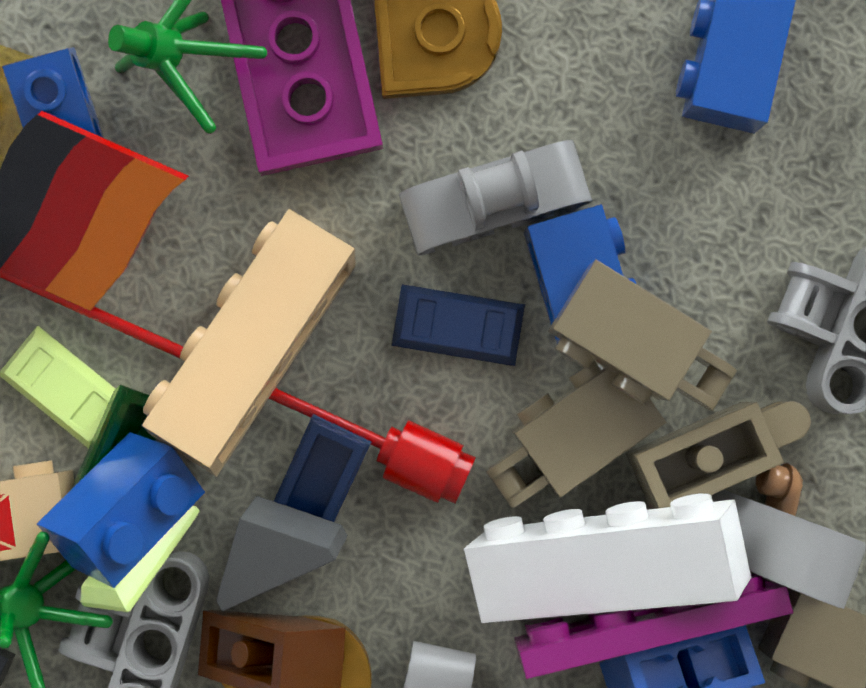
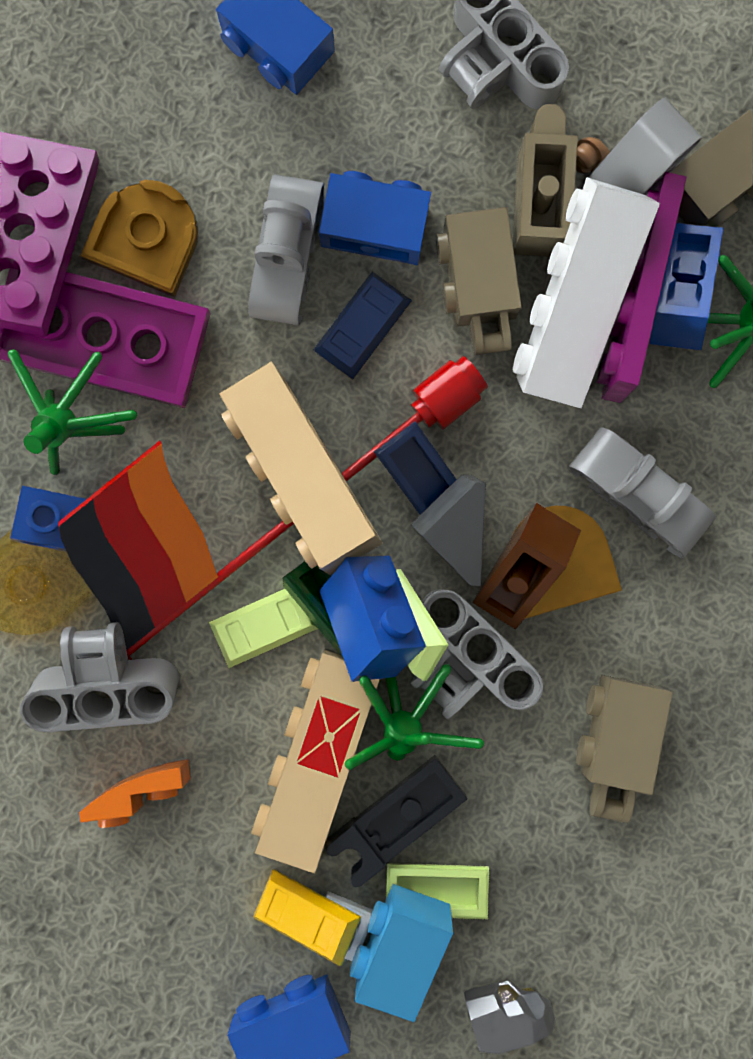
camera: 65 degrees left, 0 degrees up
(637, 339) = (438, 191): dark tan brick -> none

